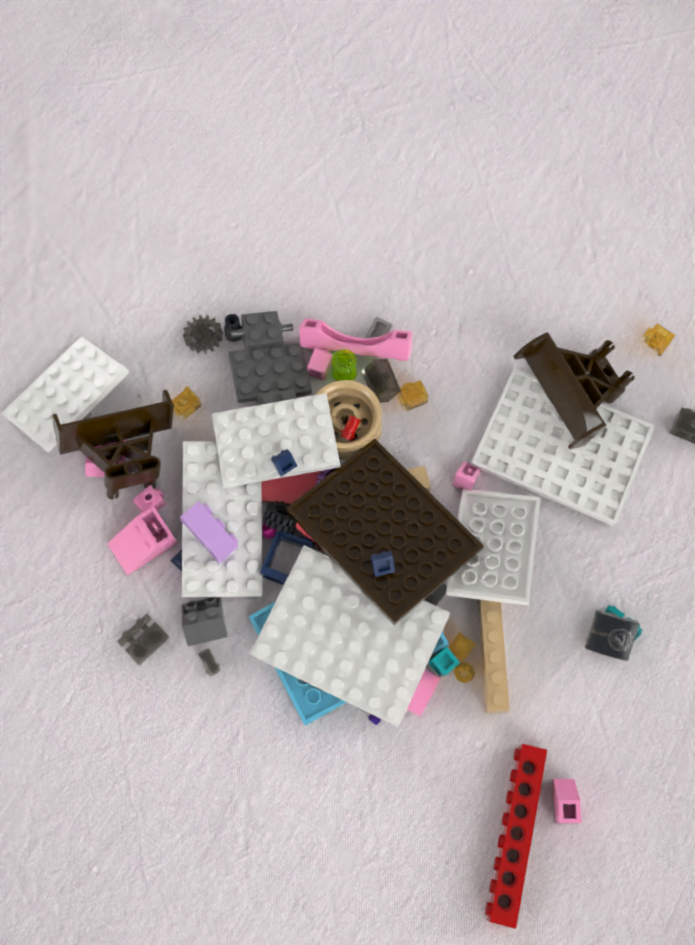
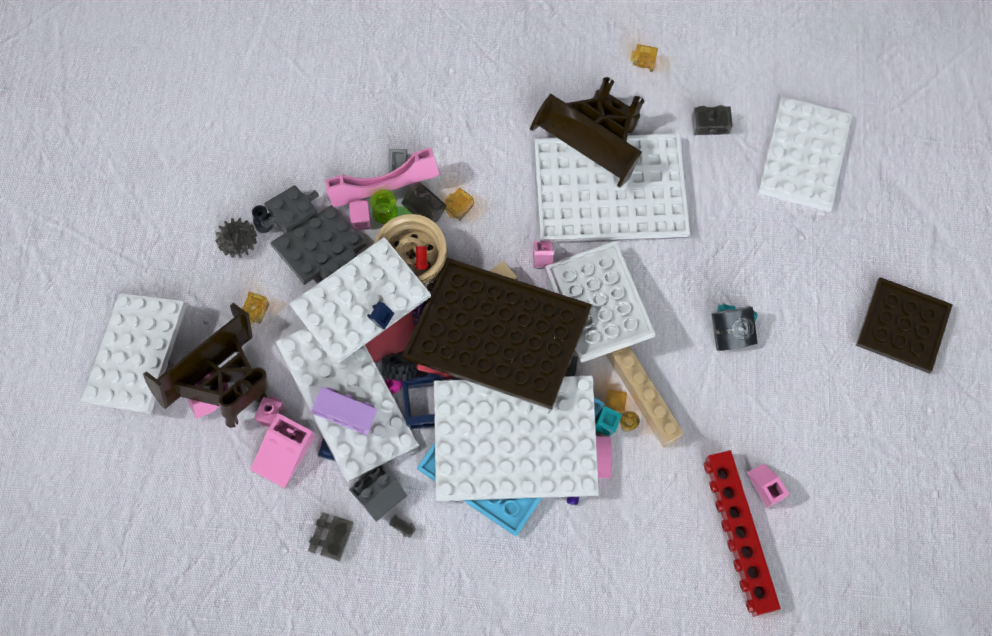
camera: 30 degrees left, 0 degrees up
(382, 563) = (515, 361): dark blue tile -> none

